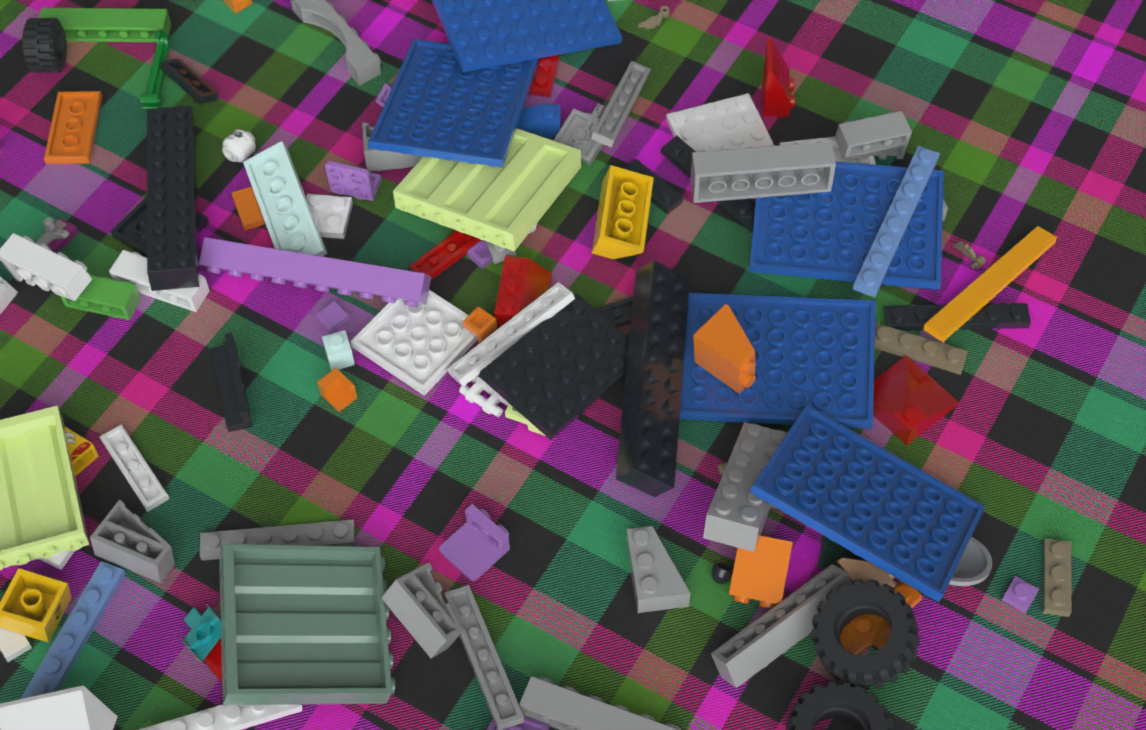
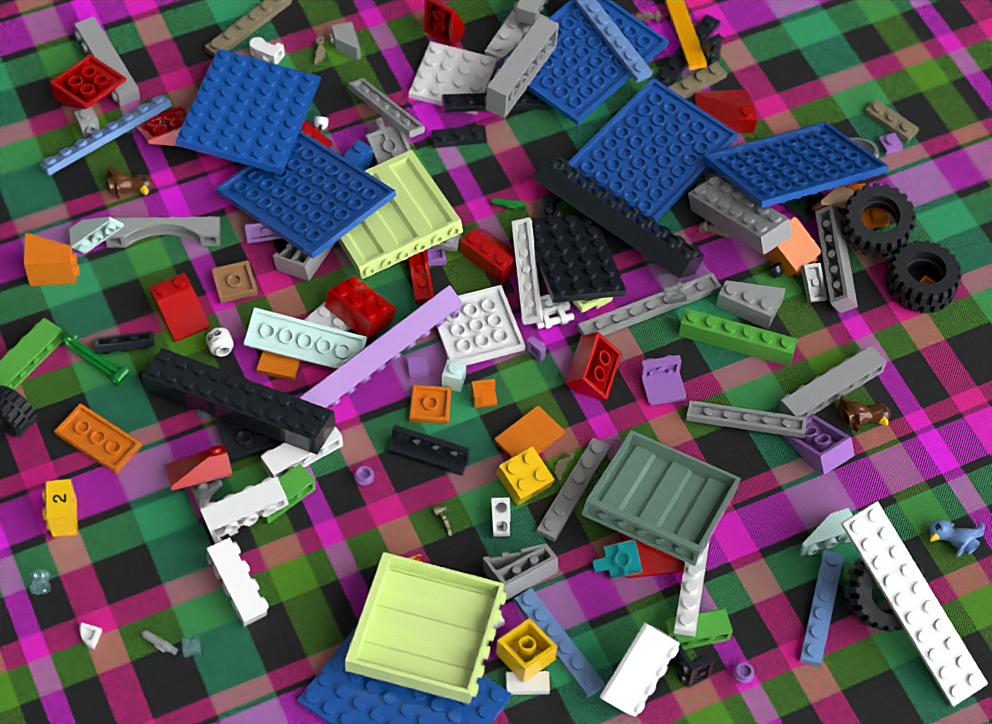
camera: 60 degrees left, 0 degrees up
(74, 212) = (199, 468): none -> slope
(134, 468) = (449, 544): white tile -> none
(167, 348) = (364, 475): none -> medium lavender plate
(167, 434) = (438, 511): none -> dark tan piece
(191, 492) = (501, 517): none -> white leg
(252, 482) = (524, 476): none -> yellow brick
(258, 95) = (179, 307): none -> red slope
(295, 354) = (430, 404): none -> orange tile
(299, 512) = (561, 464): none -> dark tan piece
(316, 461) = (531, 430): none -> orange tile
(320, 117) = (234, 281): none -> medium nougat plate
(352, 181) = (315, 291): medium lavender bracket -> none
(359, 225) = (360, 307): none -> red brick
(423, 611) = (695, 432): light grey wedge -> none
(429, 403) = (536, 348): none -> medium lavender plate
(445, 469) = (593, 366): none -> red slope
(480, 324) = (501, 285): orange panel -> none
(566, 70) = (320, 121): none -> white hinge
(568, 477) = (648, 307): none -> light grey plate
(592, 586) = (737, 337): none -> bright green brick
(601, 276) = (509, 204): none -> green piece
(601, 482) = (672, 288): none -> clear tile
(622, 214) = (474, 162): yellow slope -> none
(686, 28) = (345, 39): none -> light grey slope
(725, 350) = (637, 167): orange slope -> none
(731, 620) = (814, 282): none -> light grey plate
(971, 333) = (712, 49): none -> black plate

